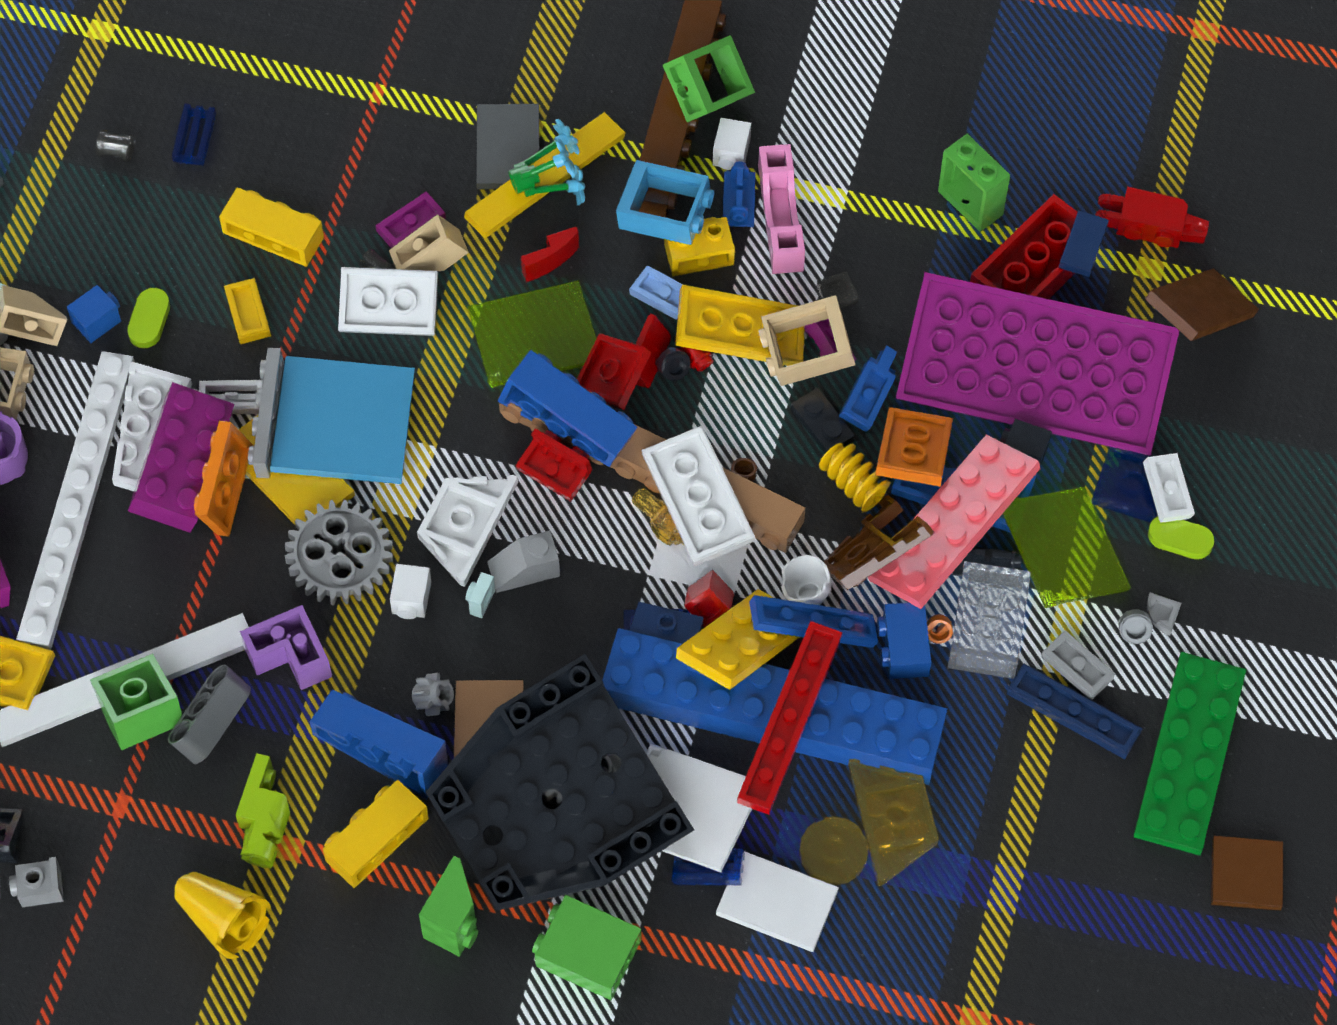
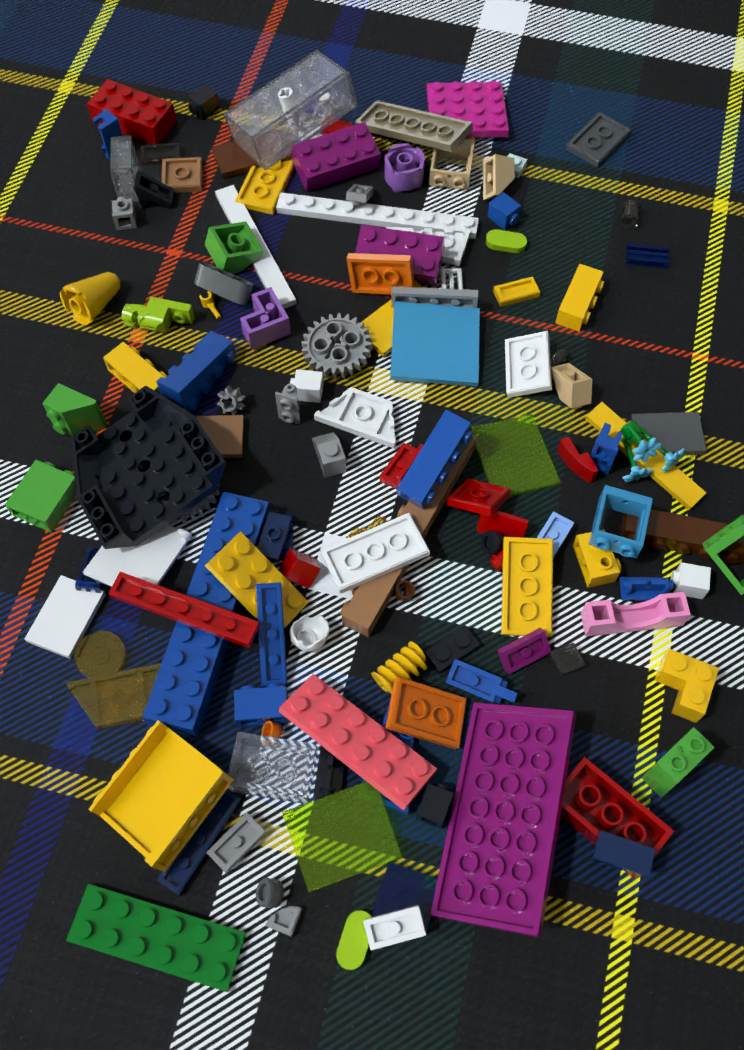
camera: 90 degrees right, 0 degrees up
(41, 513) = (359, 194): none -> light grey plate
(240, 740) = (209, 303): none -> yellow hand
(408, 219) = (602, 380): magenta plate -> none
(452, 607) = (288, 404): none -> light grey hinge
(480, 594) = (304, 426): light aqua plate -> none
(542, 216) = (605, 449): none -> blue hinge
(797, 317) = (514, 648): tan window -> none
(869, 159) = (692, 679): none -> yellow brick
(872, 549) = (327, 669): reddish brown wing -> none
(1030, 741) = (161, 795): none -> yellow panel
(1152, 218) = (670, 930): red hinge -> none
(1201, 304) = (575, 966): reddish brown tile -> none
(1247, 873) = (44, 981): reddish brown tile -> none

